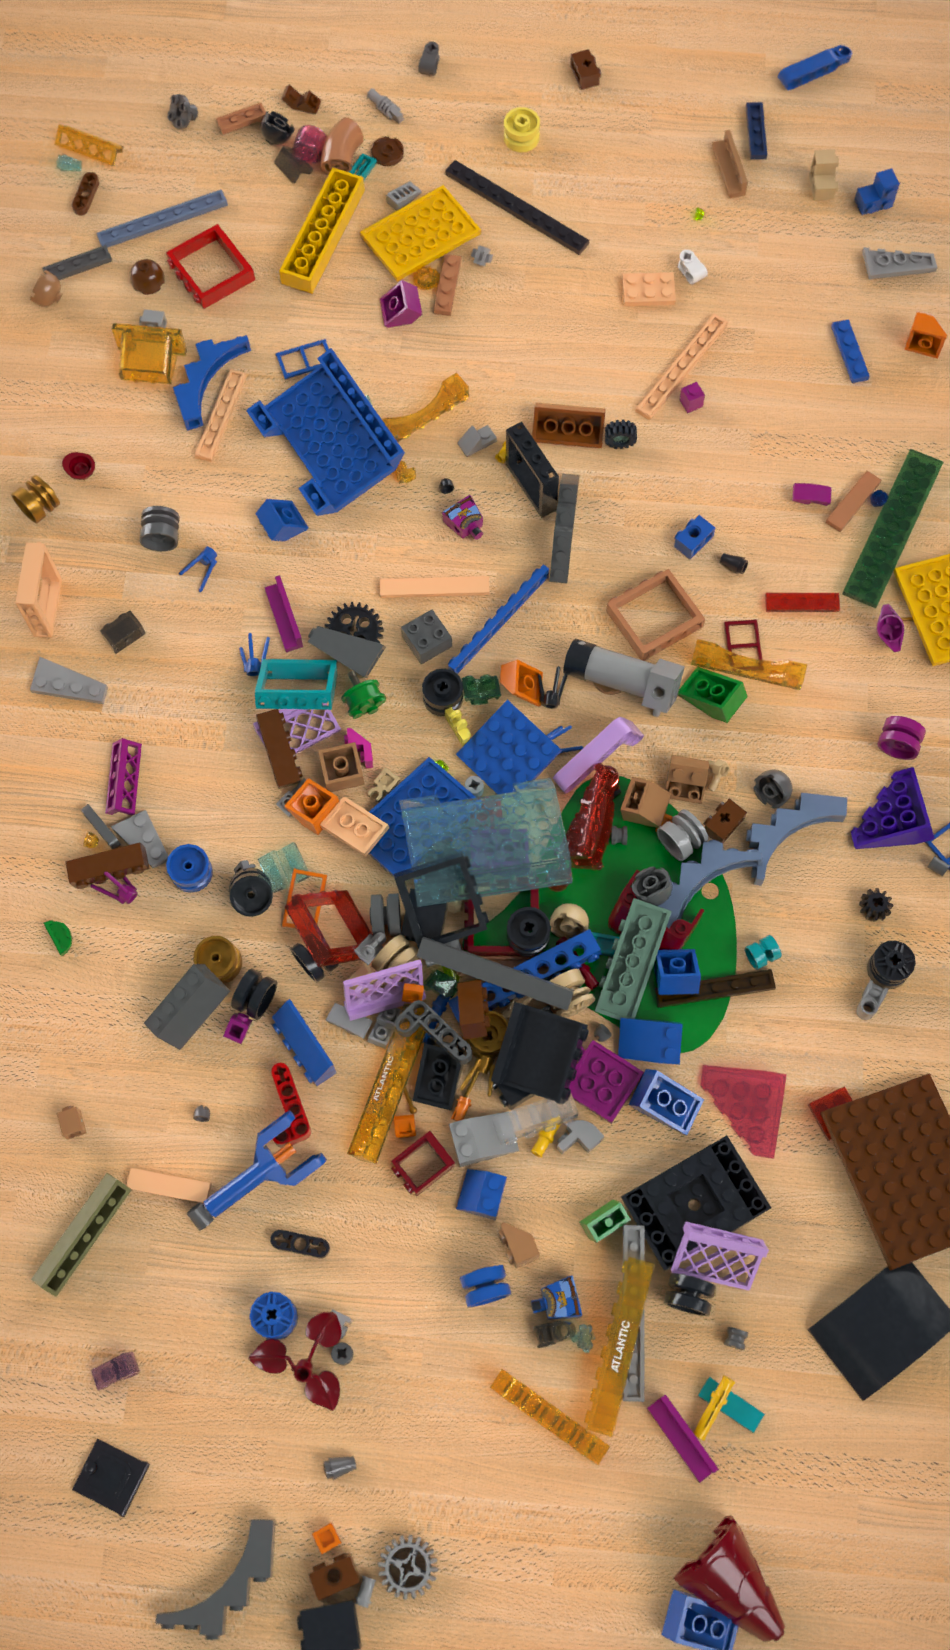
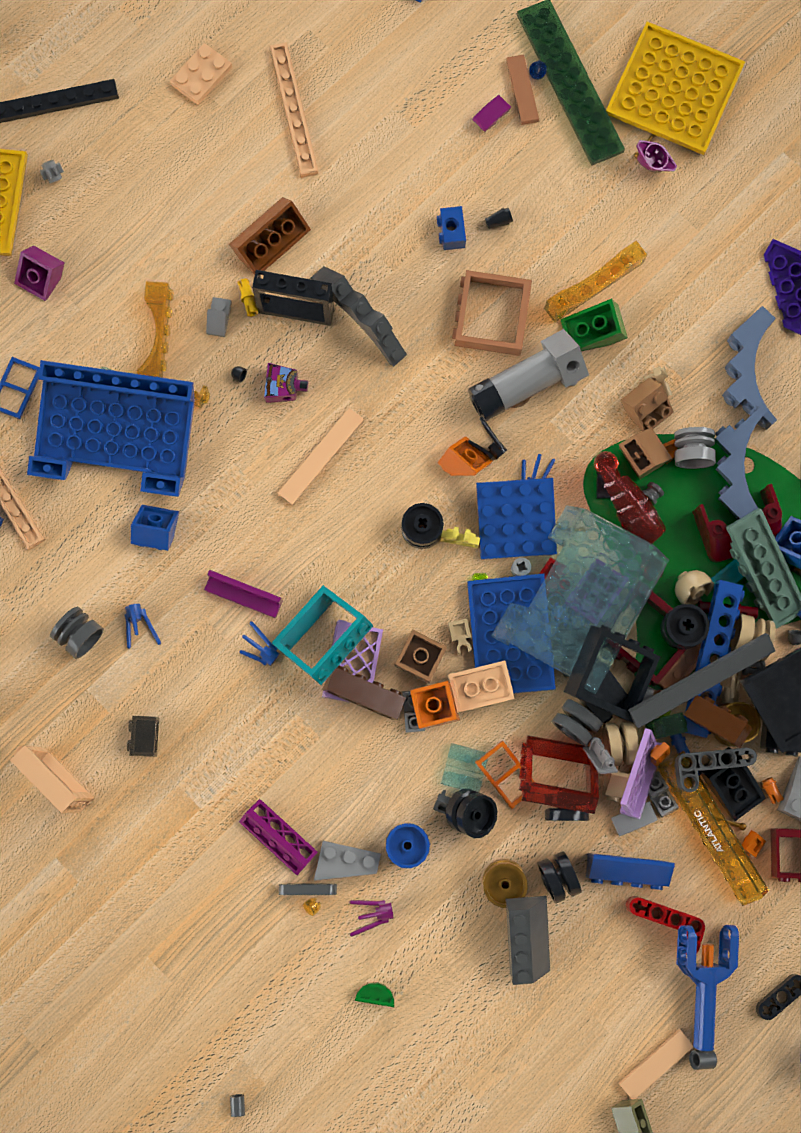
camera: 55 degrees left, 10 degrees up
(65, 683) = (147, 820): light grey wing -> none
(71, 1122) = (545, 1105): medium nougat brick -> none
(117, 862) = (350, 906): reddish brown brick -> none
(202, 1114) = (618, 992): dark grey hinge -> none
(238, 1027) = (575, 912): magenta brick -> none
(349, 650) = (324, 569): dark grey slope -> none
(362, 746) = (404, 627): dark pink slope -> none
(363, 697) = (376, 592): green wheel -> none
(371, 632) = (321, 540): black gear -> none
(426, 636) = (362, 498): dark grey brick -> none
(431, 281) = (37, 231): clear yellow gear -> none
(447, 285) = (52, 220): nougat plate -> none
(481, 690) = (444, 493): clear green cylinder -> none
(482, 1064) = (760, 746): pearl gold plant -> none
(502, 615) = (395, 439): blue plate -> none
(602, 746) = (579, 425): lavender beam -> none
(621, 434) = (317, 205): black bush -> none
(653, 886) = (725, 504): dark grey cylinder -> none
(691, 267) = (214, 27): white piece -> none
(692, 397) = (330, 125): magenta brick -> none
(731, 813) = (708, 400): reddish brown brick -> none
(749, 645) = (554, 276): dark red window -> none
(773, 788) = (709, 350): dark grey cylinder -> none
(802, 602) = (573, 199): clear red tile -> none
(901, 737) = (748, 226): magenta wheel -> none

